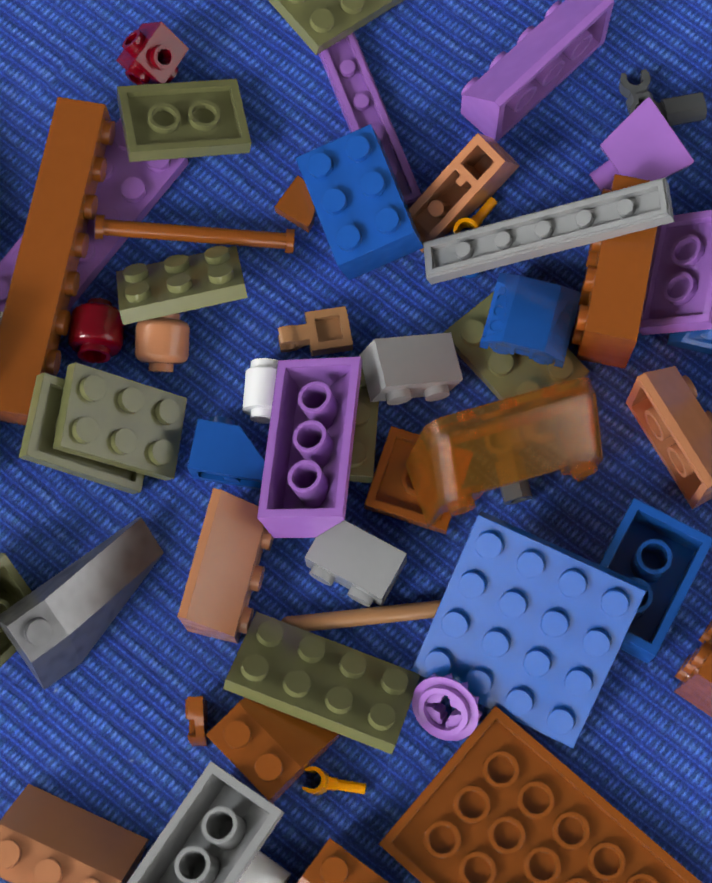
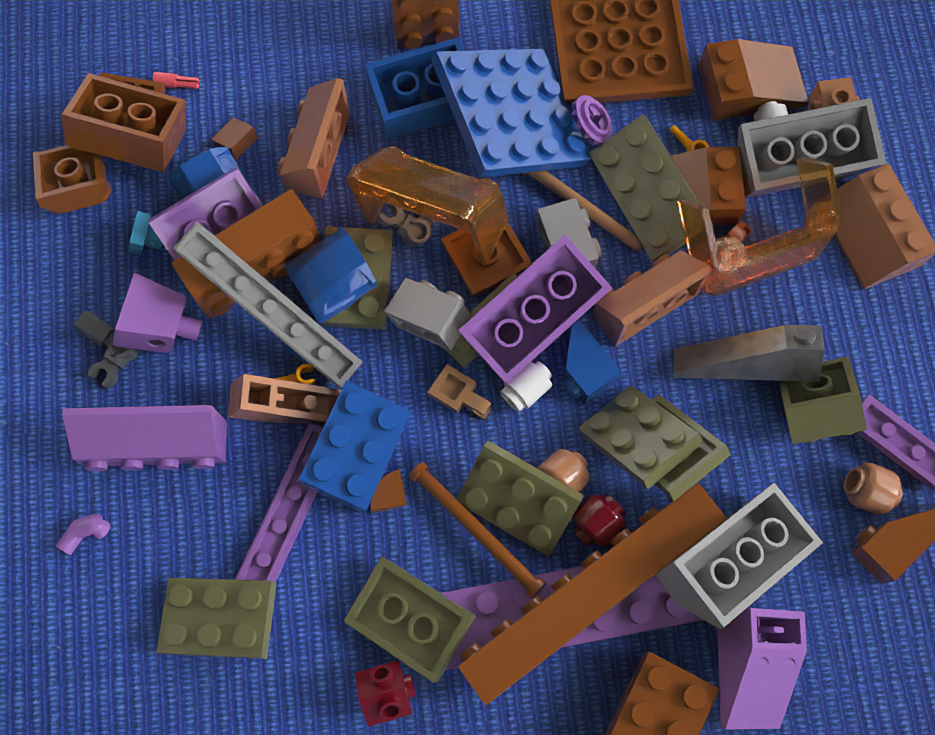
camera: 140 degrees left, 0 degrees up
(150, 708) = (740, 265): none -> clear orange windscreen

